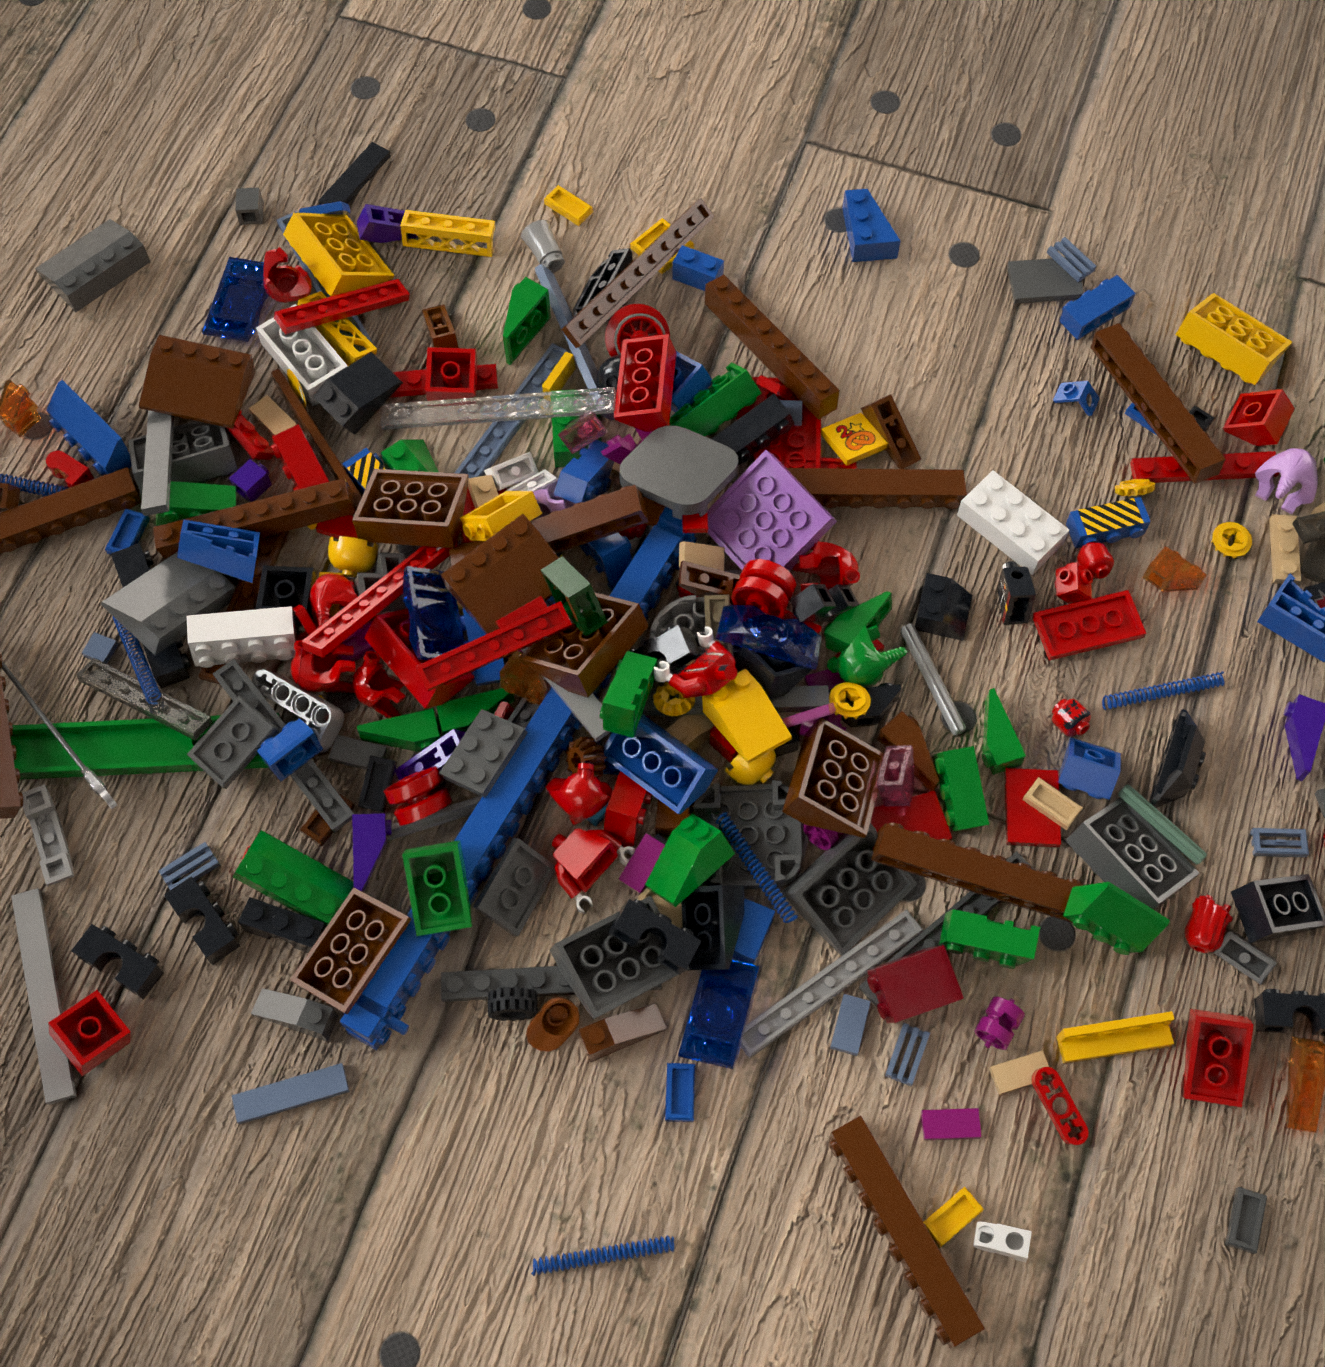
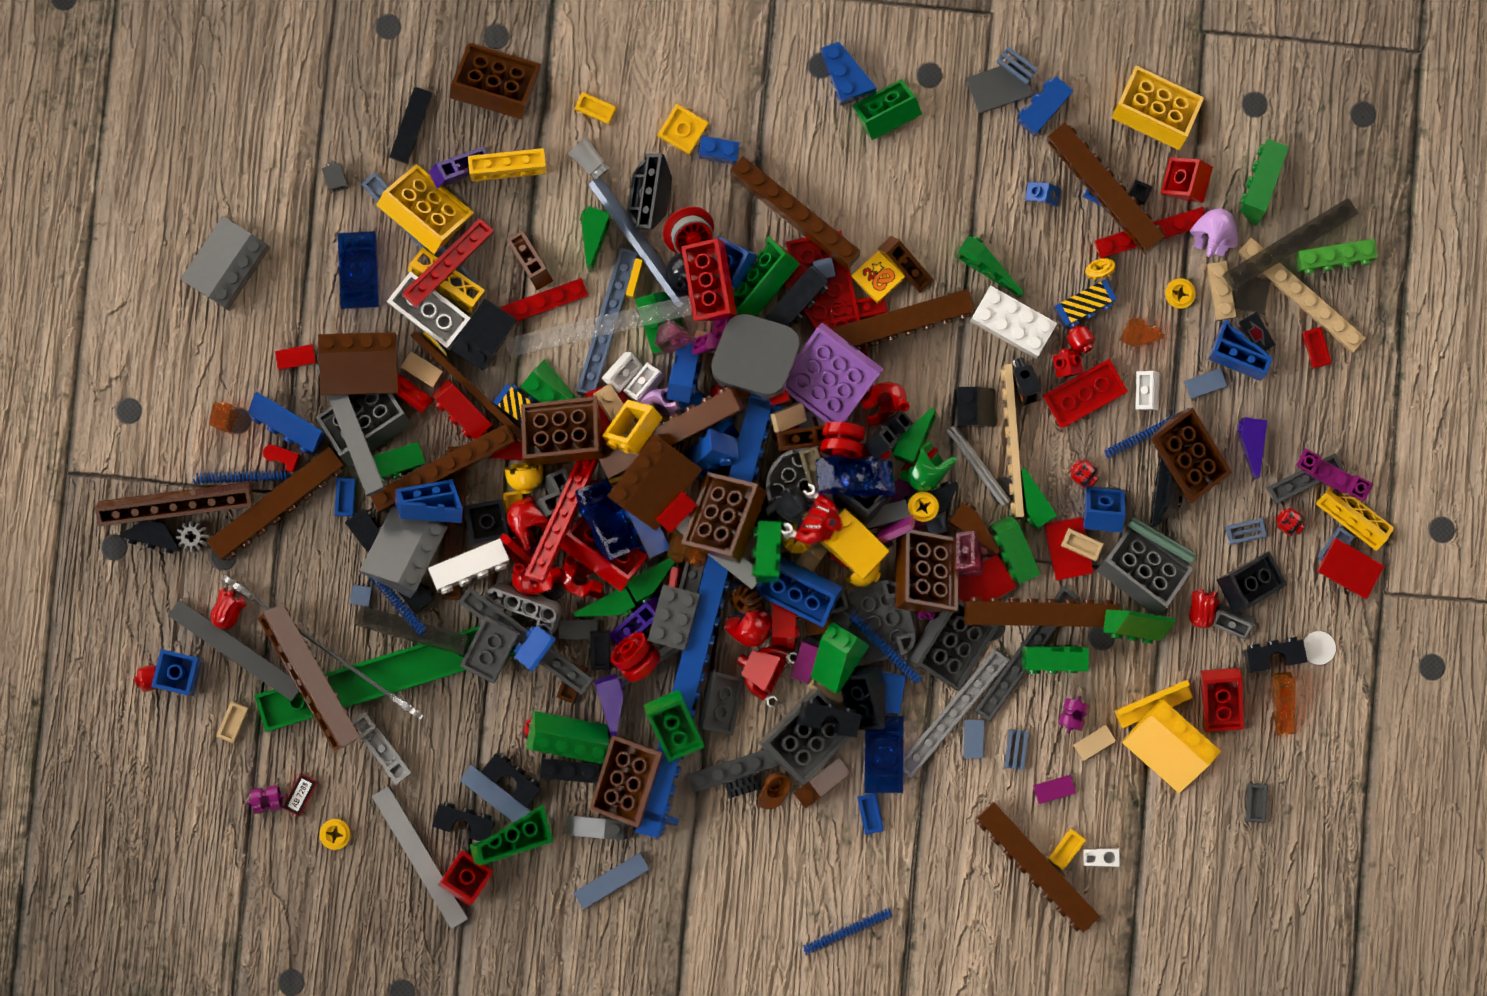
camera: 15 degrees left, 20 degrees up
(126, 373) = (295, 357): none -> red tile
(175, 938) = (493, 794): none -> sand blue tile
(176, 990) = (518, 837): none -> green wedge
(183, 860) = (477, 756): sand blue tile -> none
(251, 480) = (425, 430): dark purple brick -> none
(284, 282) = (392, 247): red piece -> none
(330, 208) = (400, 169): blue tile -> none
(450, 373) = (554, 306): red brick -> none
(461, 155) = (494, 81): none -> reddish brown slope
(493, 646) = (662, 541): red plate -> none
(575, 594) = (710, 491): dark green window -> none
(600, 563) = (713, 452): none -> blue wedge
(637, 273) = (675, 172): plate -> none
(773, 386) = (807, 255): red tile -> none
(862, 732) = (936, 525): none -> sand blue tile
(907, 273) = (887, 109): none -> green slope
(914, 984) = (1011, 704): dark red slope -> none
(981, 668) = (1012, 449): none -> tan plate
(985, 446) = (982, 260): none -> green wedge
(1064, 1128) = (1118, 746): red beam -> none
(1133, 1102) = (1170, 746): none -> yellow slope
(1171, 641) = (1147, 390): none -> white slope
(1223, 716) = (1190, 454): none -> reddish brown slope
(1249, 650) = (1205, 383): none -> sand blue tile

